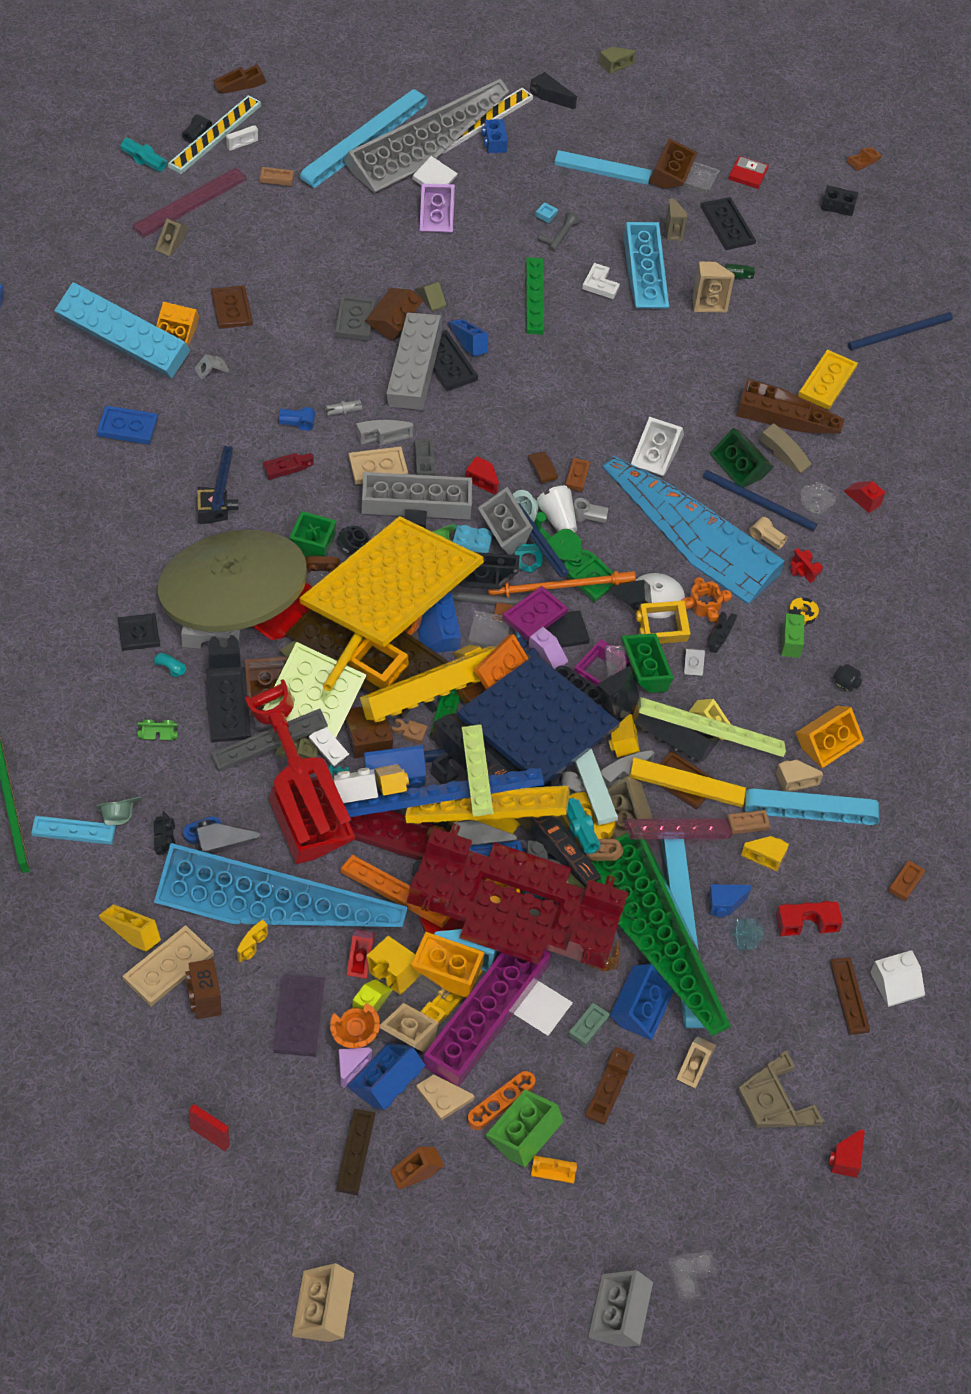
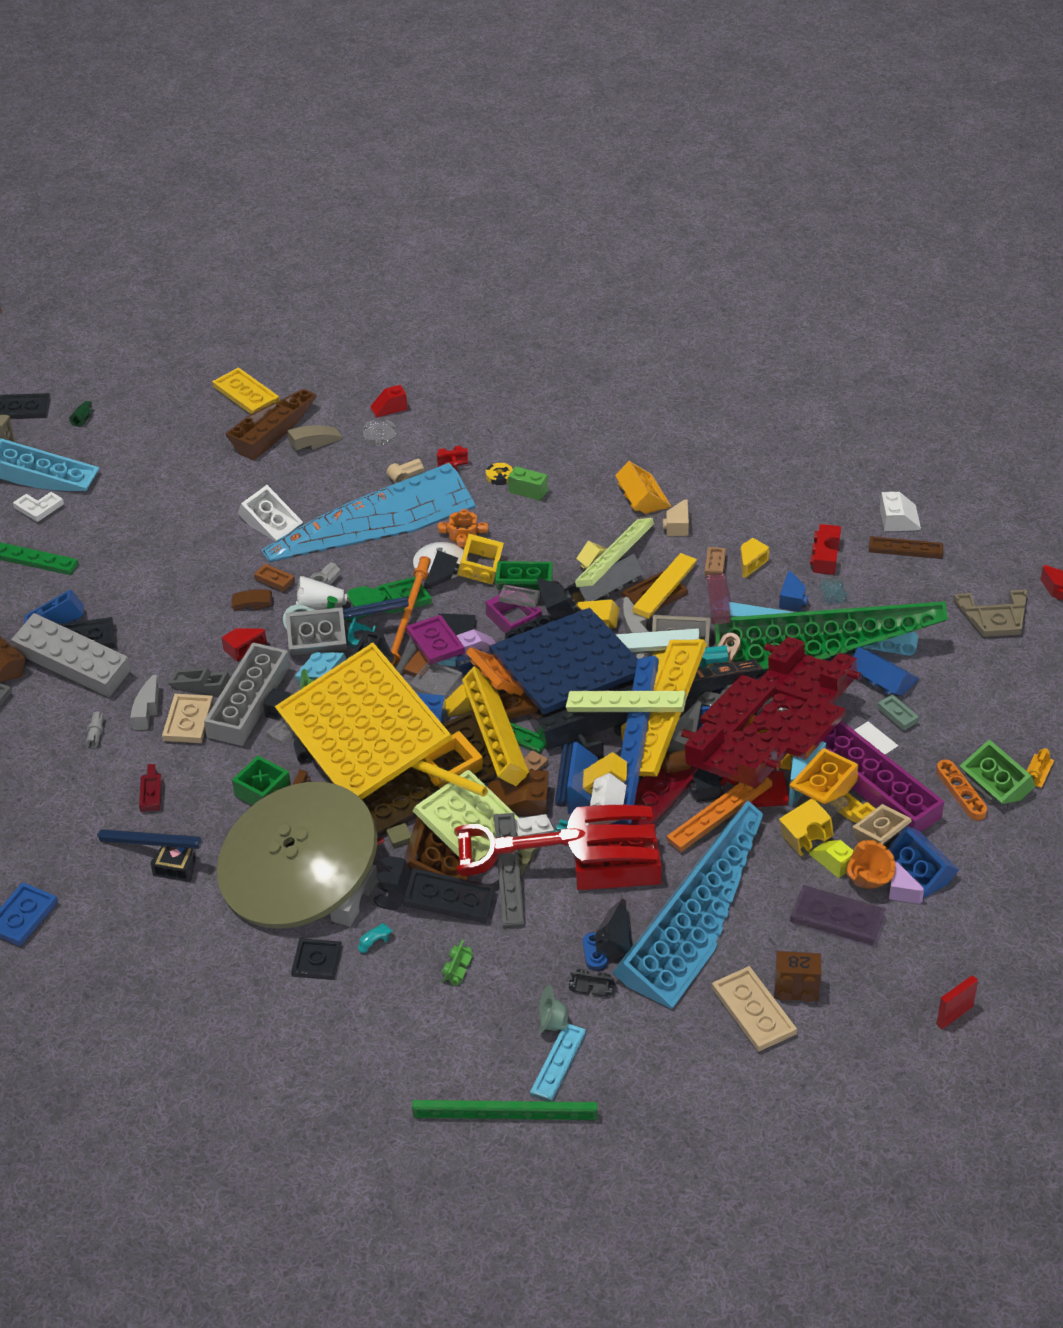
camera: 65 degrees left, 10 degrees down
(132, 927) = (699, 1029): yellow slope -> none
(248, 945) = (745, 935): yellow slope -> none
(303, 419) = (92, 764): blue piece -> none
(352, 538) = (279, 753): black piece -> none
(355, 1152) = (996, 902): dark brown plate -> none
(361, 945) = (781, 852): red slope -> none
(417, 1167) = (1022, 861): dark orange slope -> none
(443, 1096) = (948, 829): tan wing -> none
(610, 1086) = (944, 703): reddish brown slope -> none
(694, 661) = (528, 550): light grey bracket -> none
(696, 1062) = (952, 651): tan slope -> none
(712, 288) = (103, 426): tan slope -> none
(721, 631) = (503, 528): black hinge -> none
(741, 459) = (311, 466): dark green slope -> none
(784, 512) = (362, 469): dark blue piece -> none
(813, 806) = (712, 519): medium azure beam -> none
(839, 200) = (35, 329): black brick -> none
(847, 677) = (586, 463): black head -> none
(900, 331) = (212, 367): dark blue piece -> none
(907, 880) = (804, 484): dark orange plate -> none

